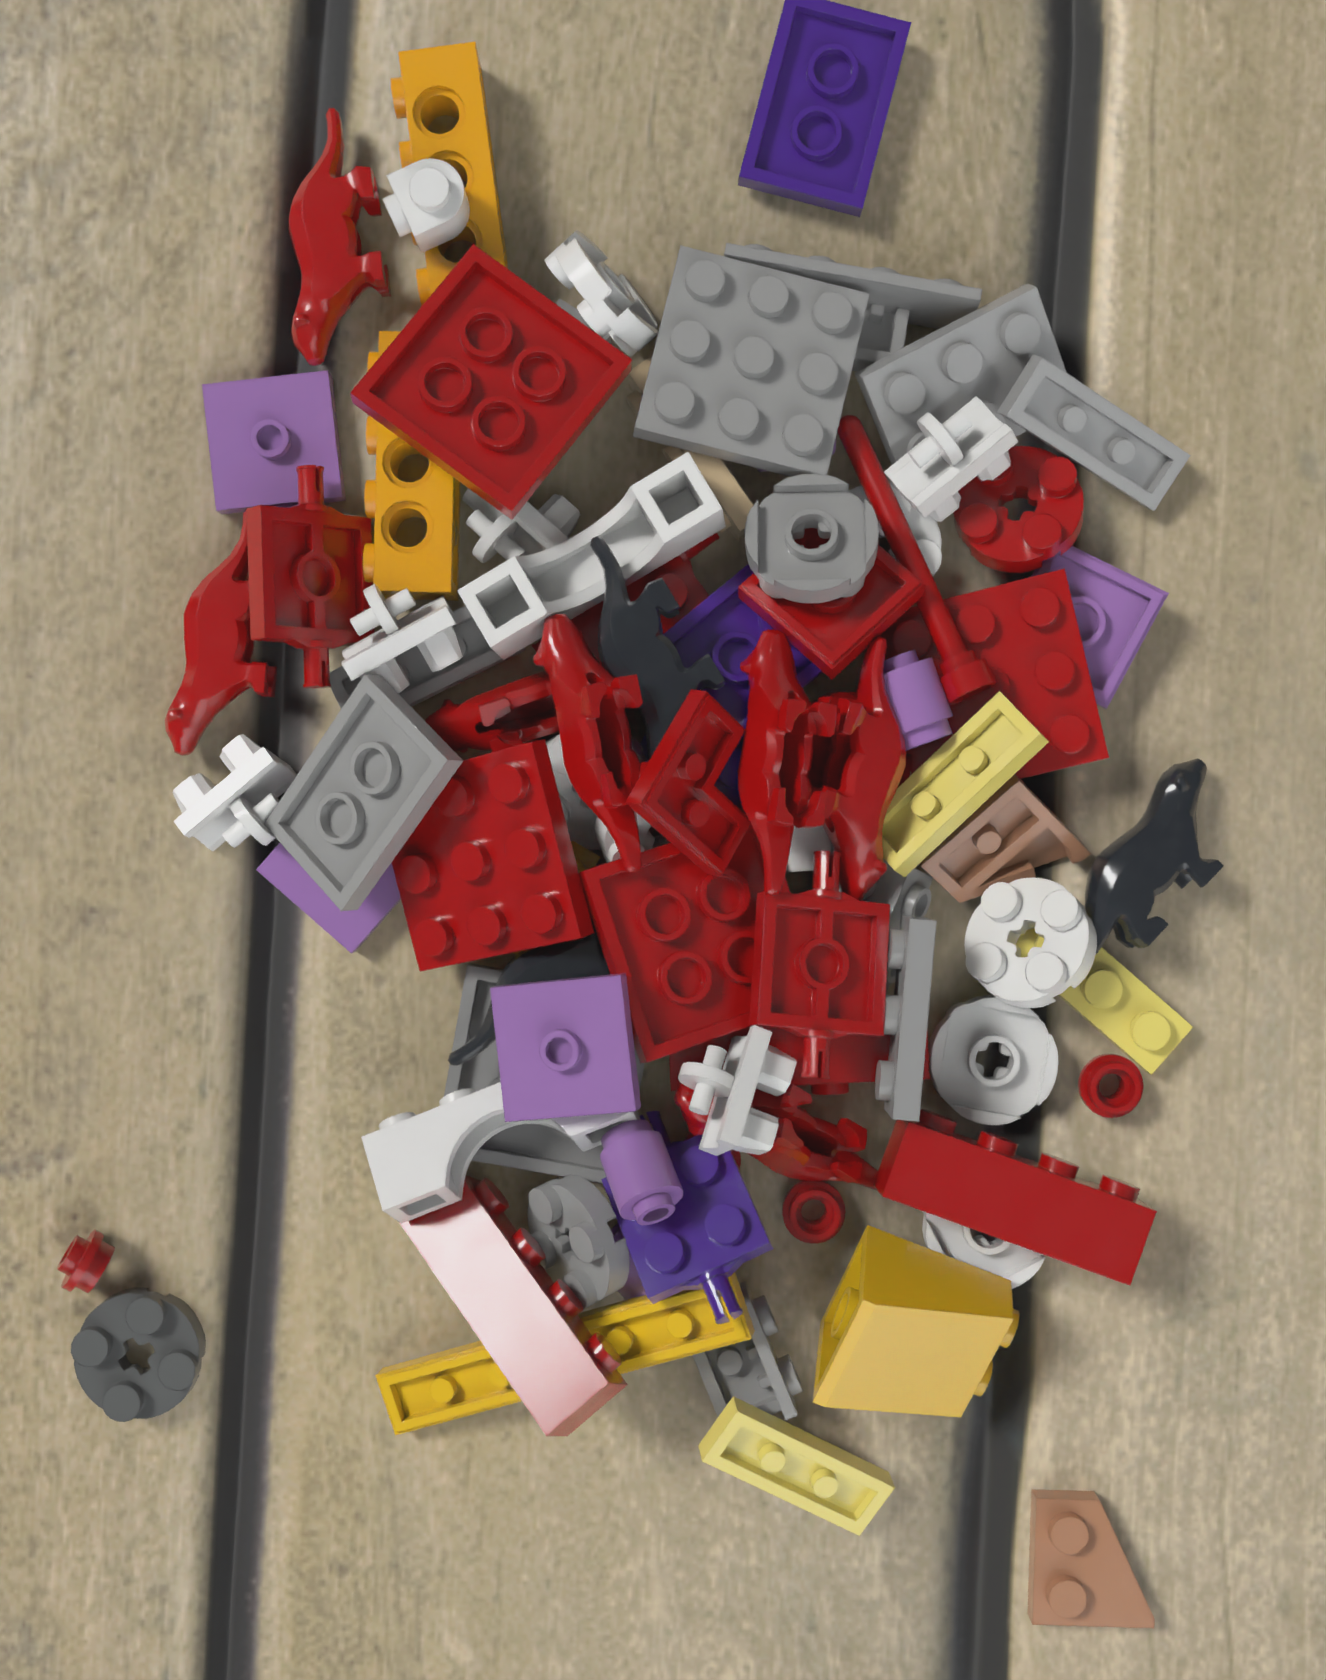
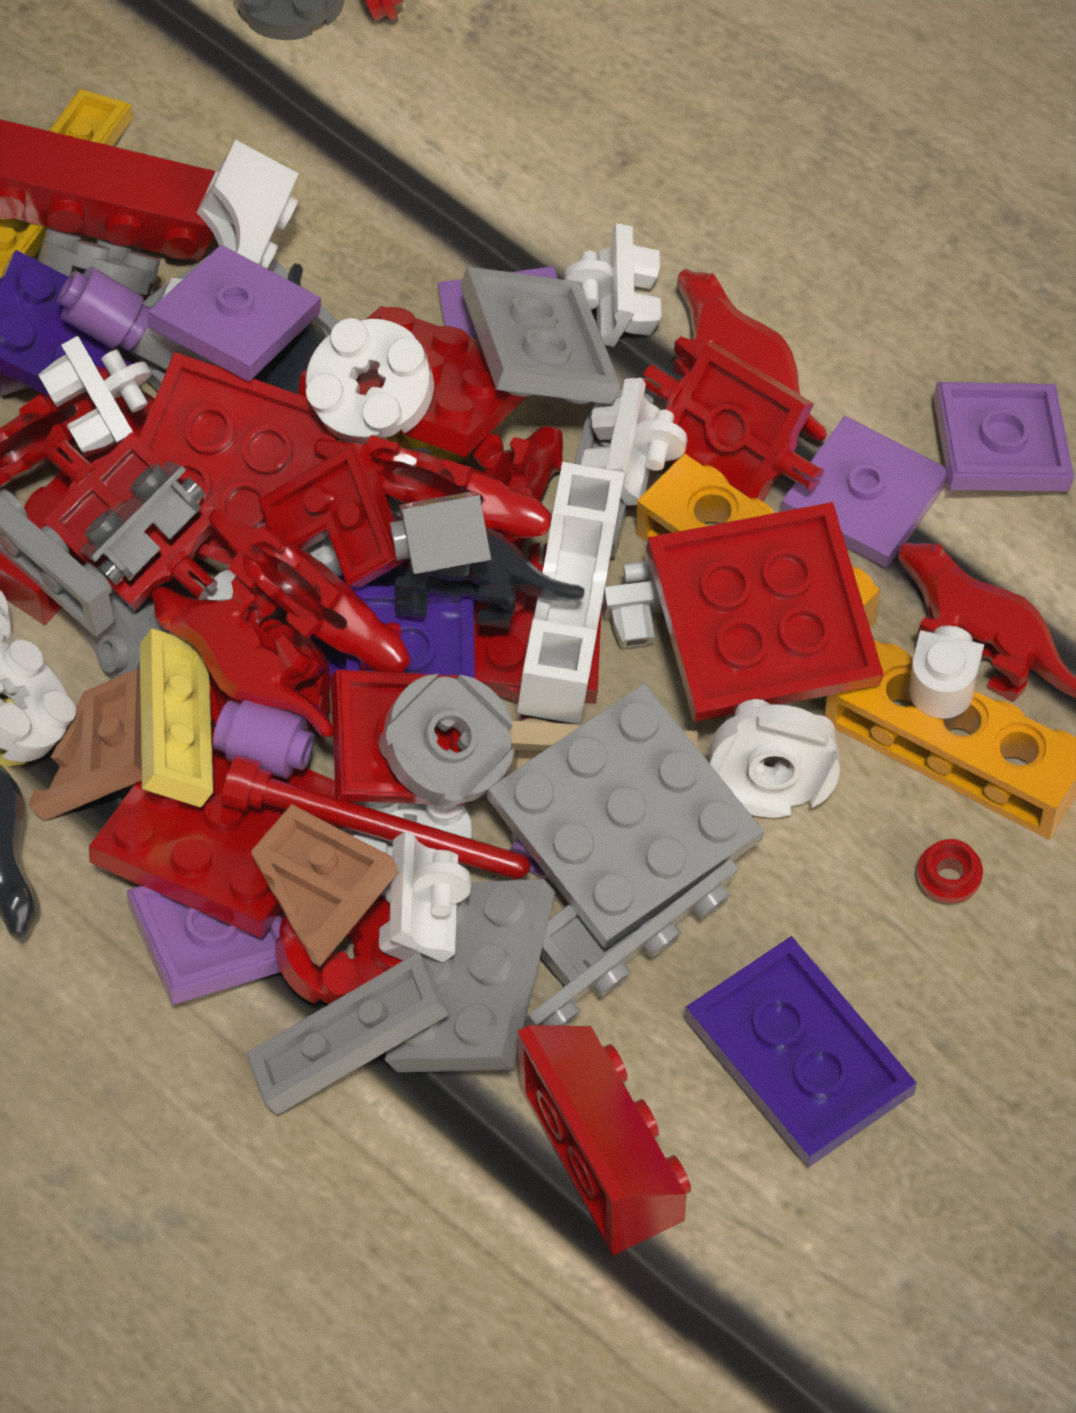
camera: 130 degrees right, 30 degrees down
(134, 365) = (1003, 436): none -> medium lavender plate
(517, 842) = (354, 350): none -> white plate
(577, 93) = (950, 855): none -> red plate
(665, 658) = (441, 533): none -> light grey brick
(858, 947) = (121, 534): none -> hinge
(1009, 538) = (321, 878): none -> nougat wing
(1021, 177) = (601, 1133): none -> red slope

